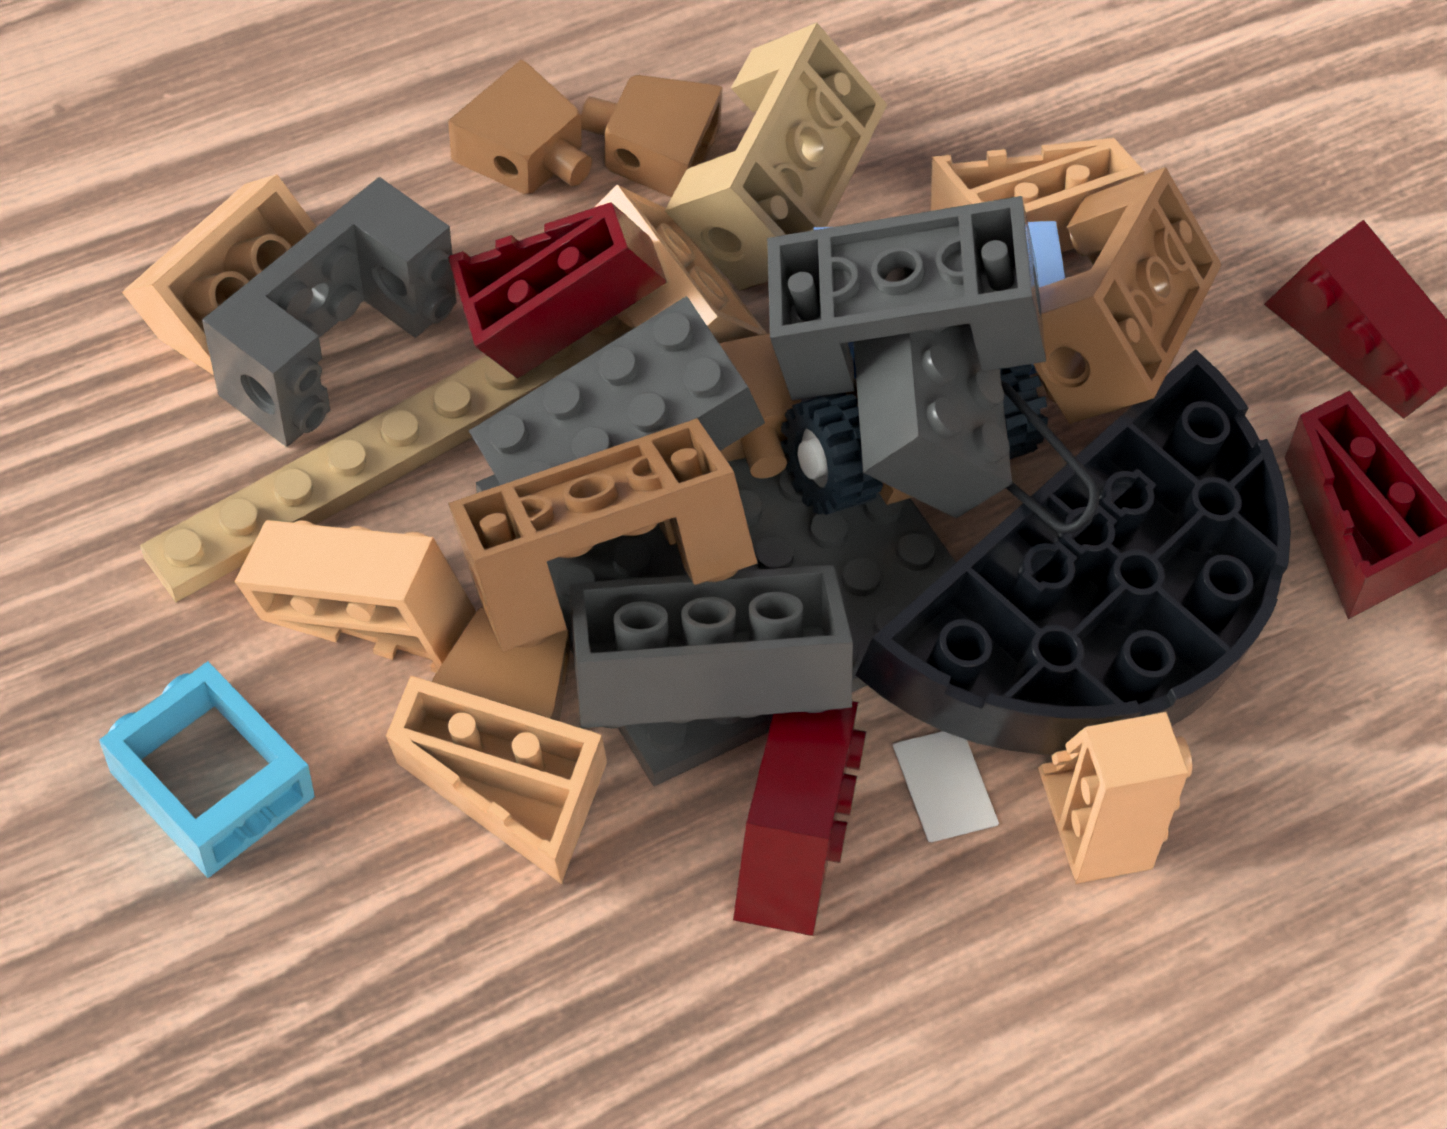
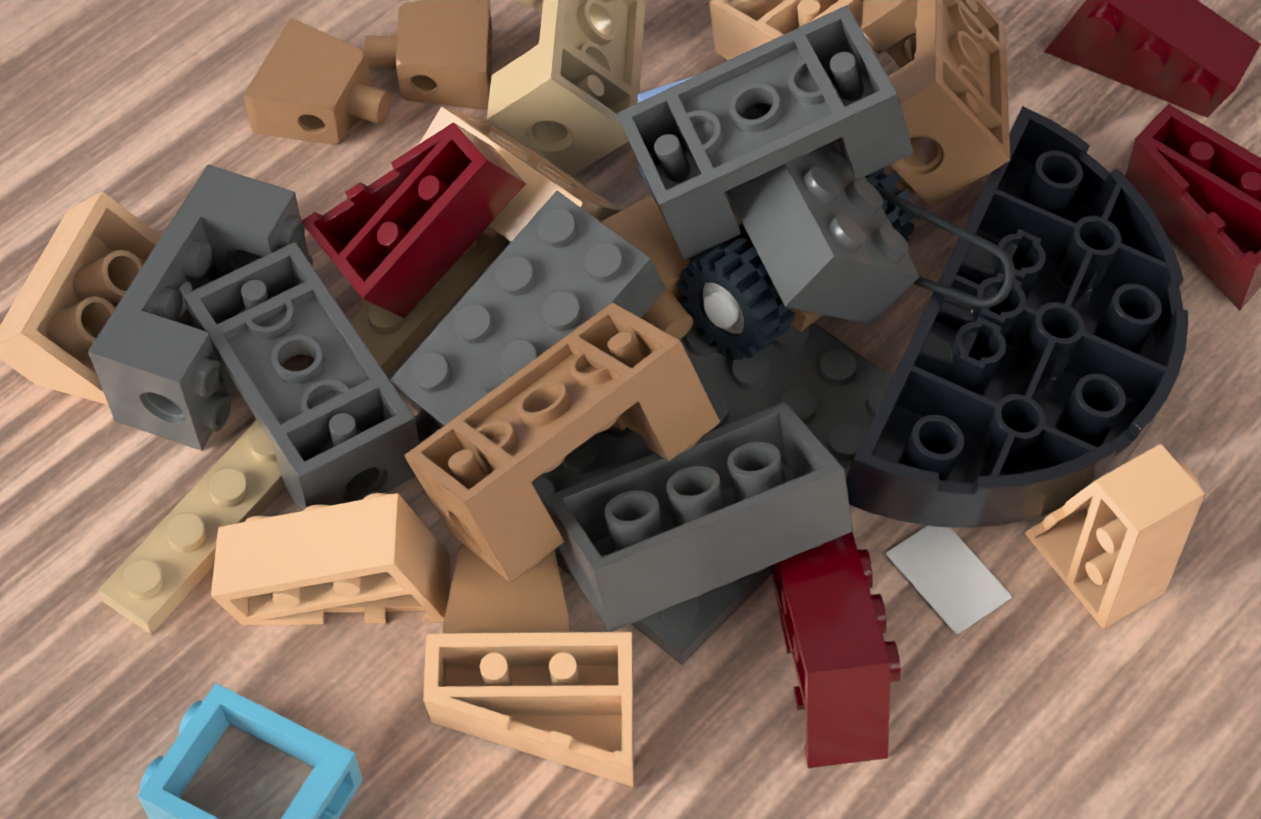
camera: 15 degrees left, 0 degrees up
(403, 451) = (331, 426): none -> dark grey plate

